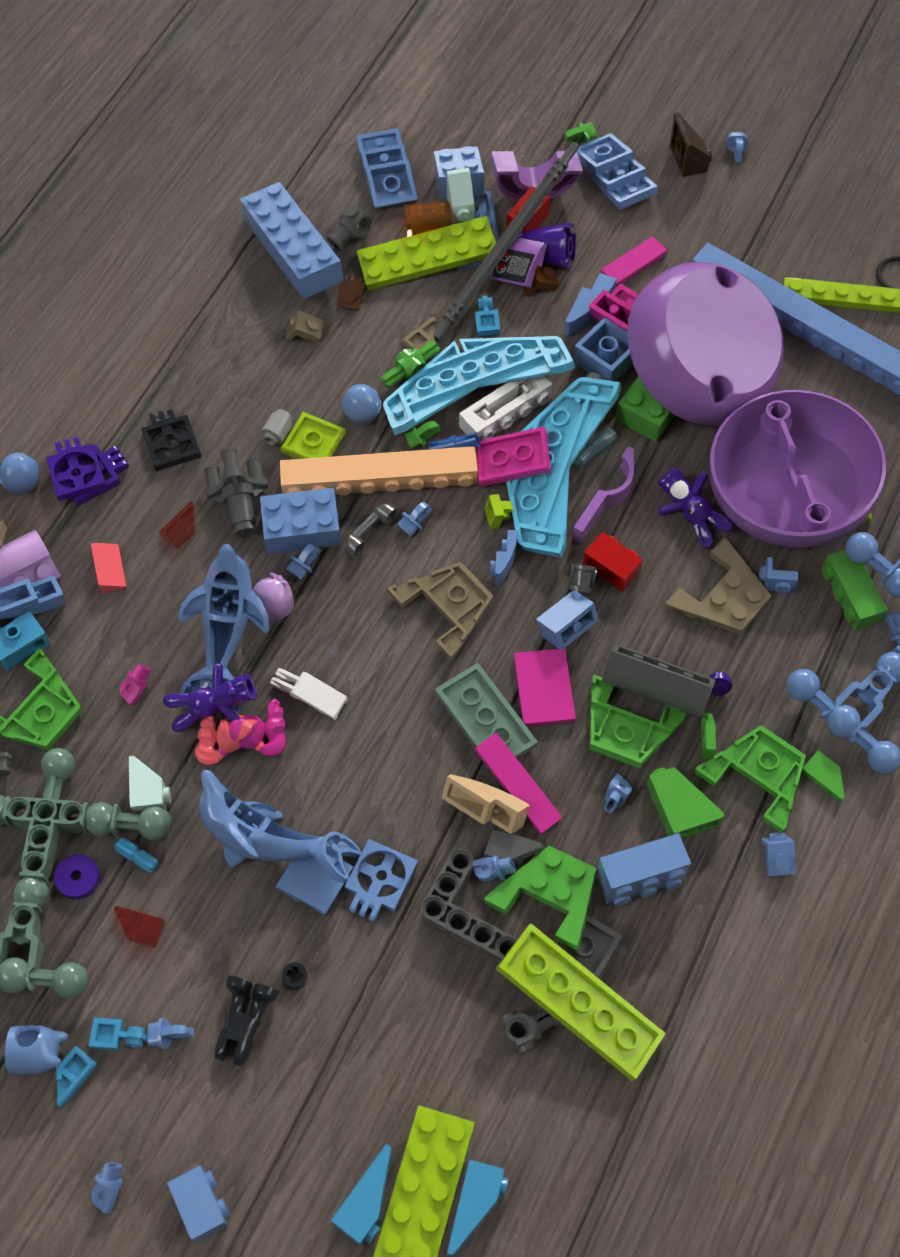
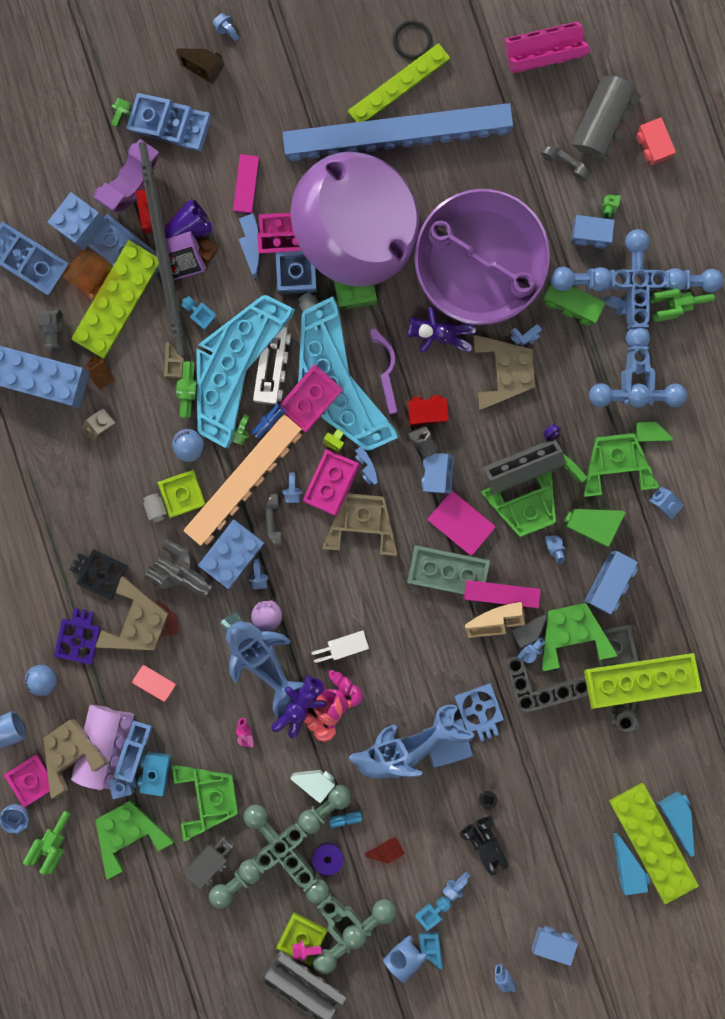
camera: 45 degrees left, 25 degrees up
(70, 454) = (56, 640): dark purple piece -> none
(155, 509) = (143, 623): none -> dark tan wing
(457, 543) = (331, 482): none -> dark pink tile
(460, 195) = (100, 243): light aqua slope -> none
(595, 446) = (348, 341): clear light blue pin -> none

